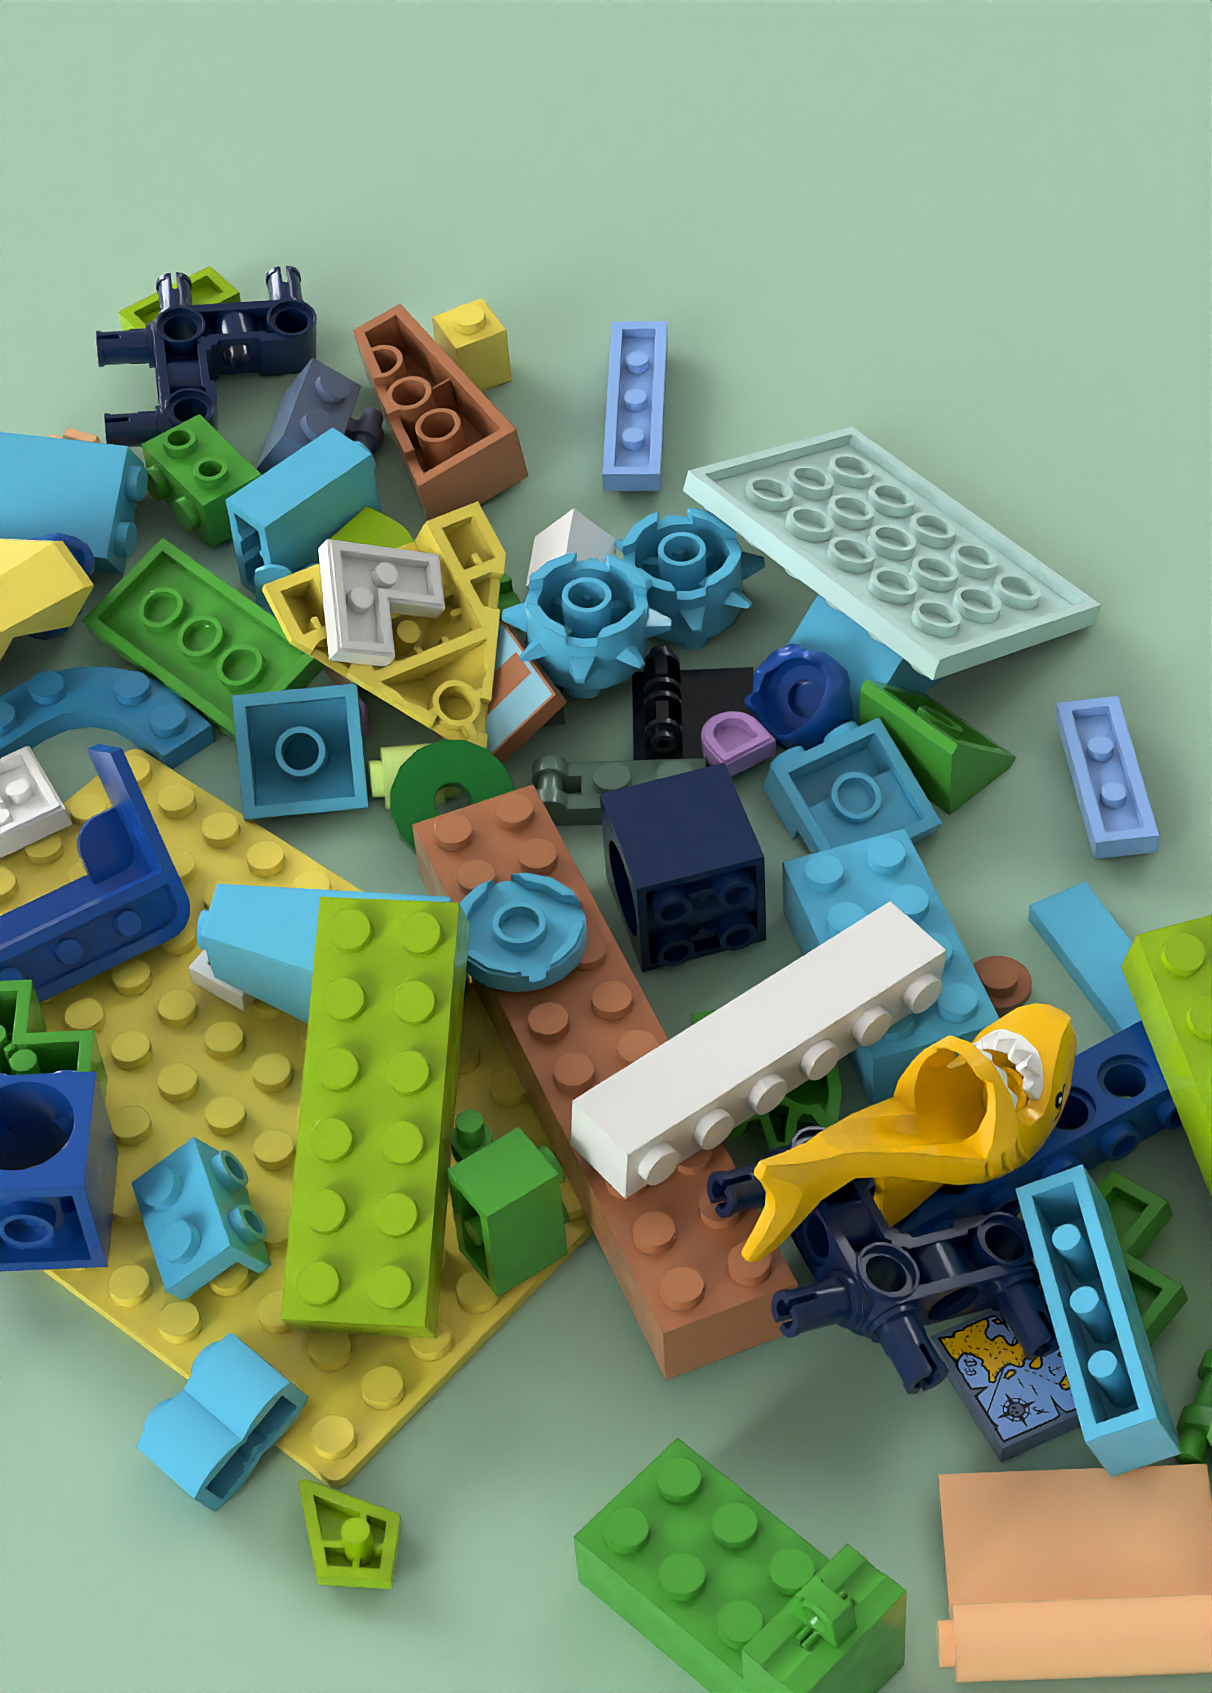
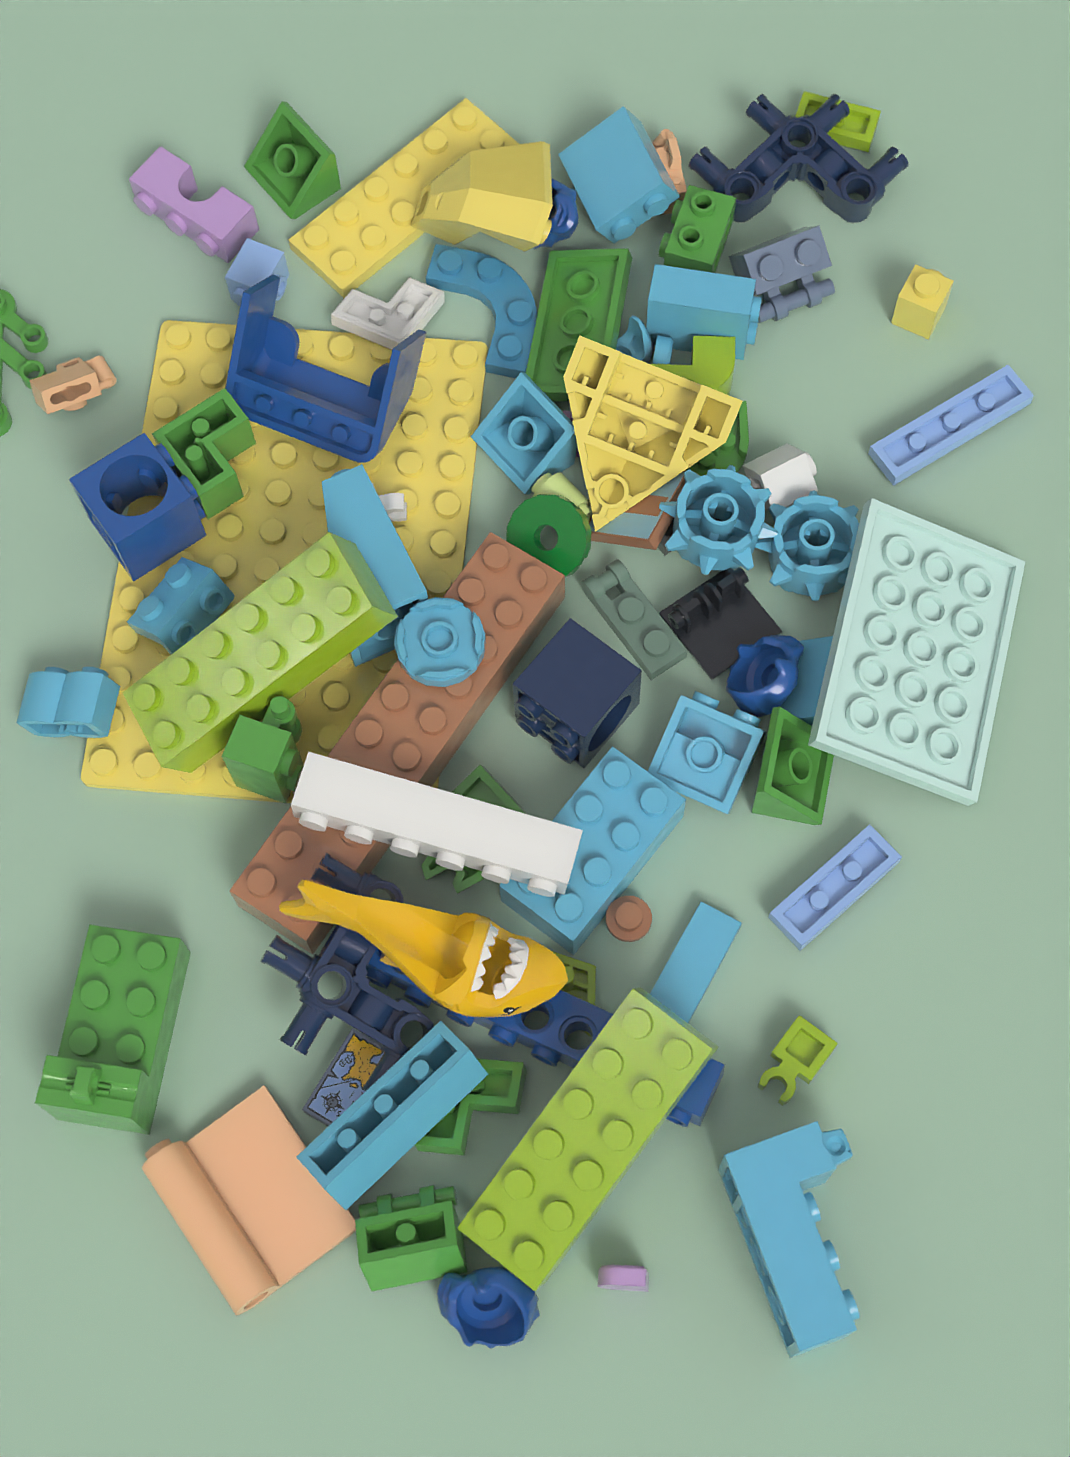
camera: 55 degrees right, 20 degrees up
(350, 1538) = (50, 810): lime piece -> none
(364, 588) = (624, 385): white tile -> none
(440, 421) = (836, 331): nougat wedge -> none
(736, 741) = (707, 659): lavender tile -> none

